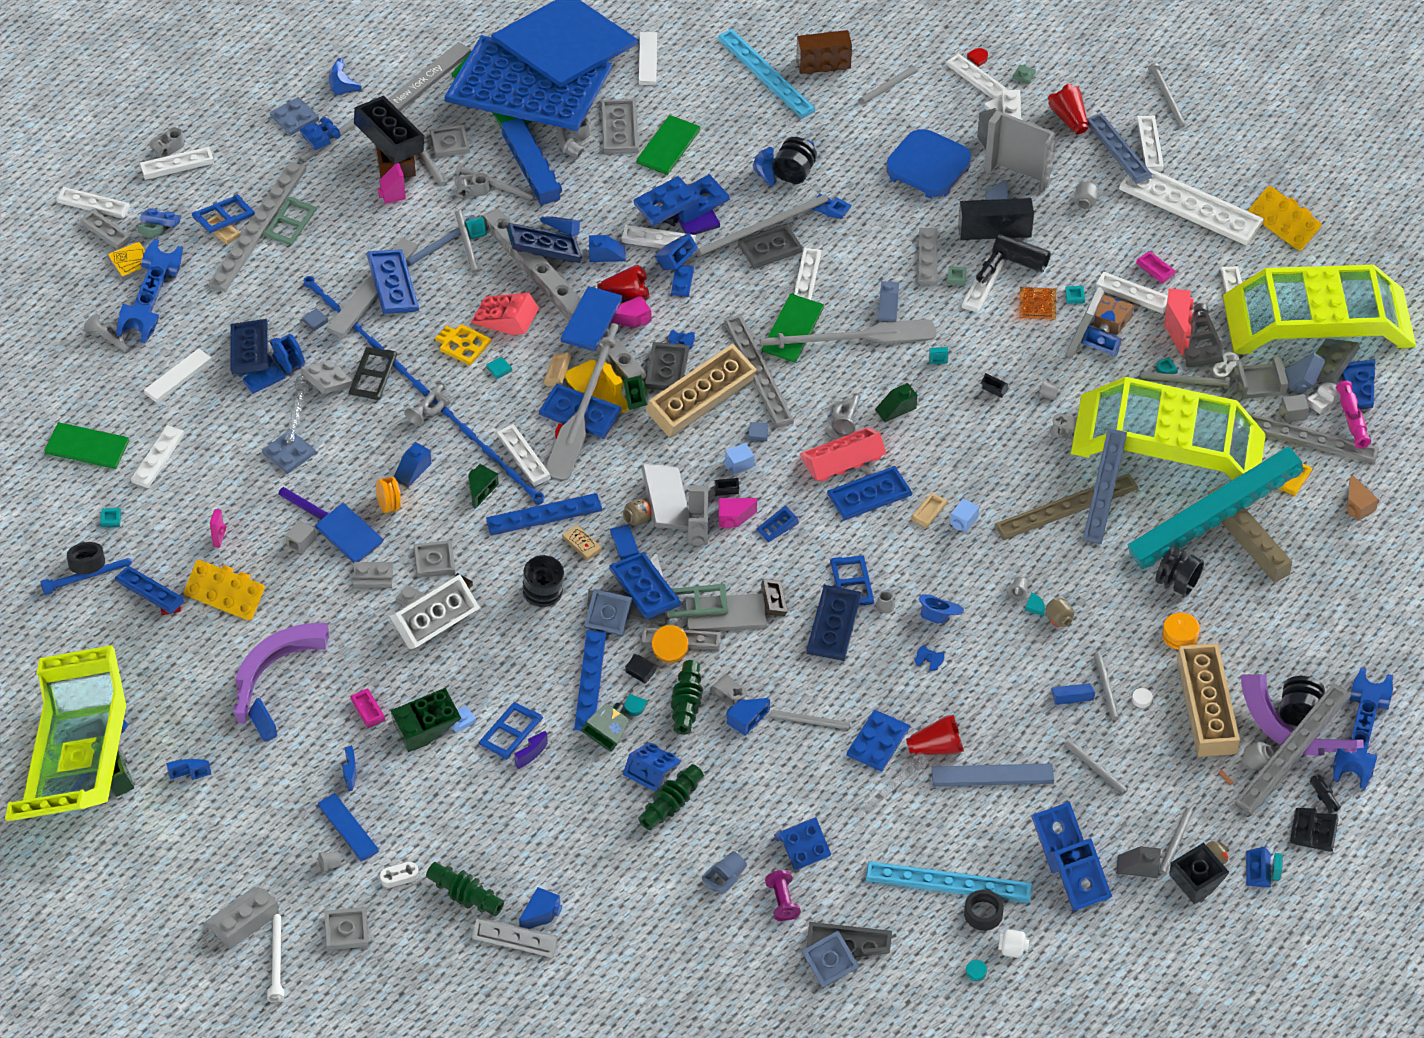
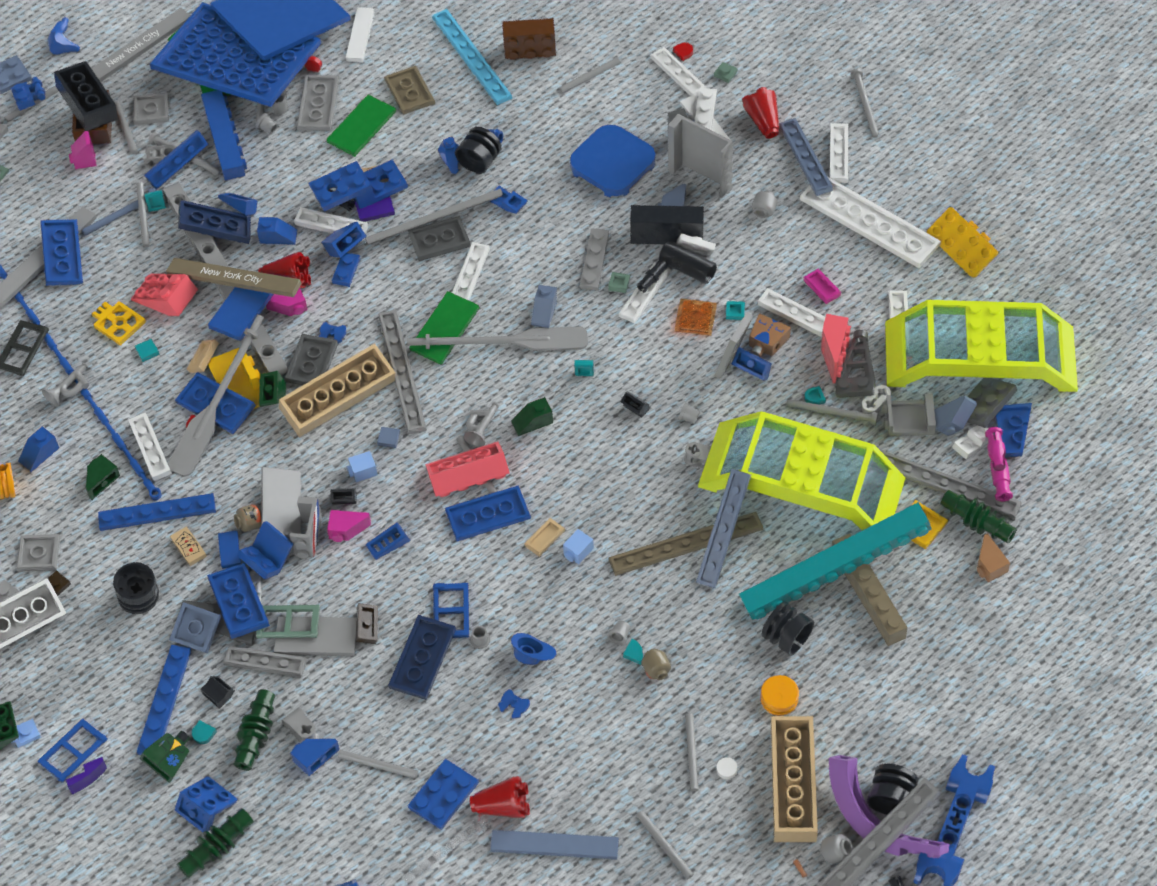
camera: 10 degrees right, 5 degrees up
(490, 187) = (176, 159): none -> blue tile
(579, 292) = (235, 277): none -> dark tan tile
(608, 89) = (313, 64): none -> red tile
(665, 538) = (267, 552): none -> blue bracket
(670, 644) = (249, 668): light orange head -> none
(709, 108) = (409, 90): none -> dark tan tile
(1027, 235) = (696, 244): none -> white plate
(1073, 693) = (655, 757): blue slope -> none
(1294, 408) = (939, 452): light grey brick -> none
(1341, 463) = (977, 518): none -> dark green piece

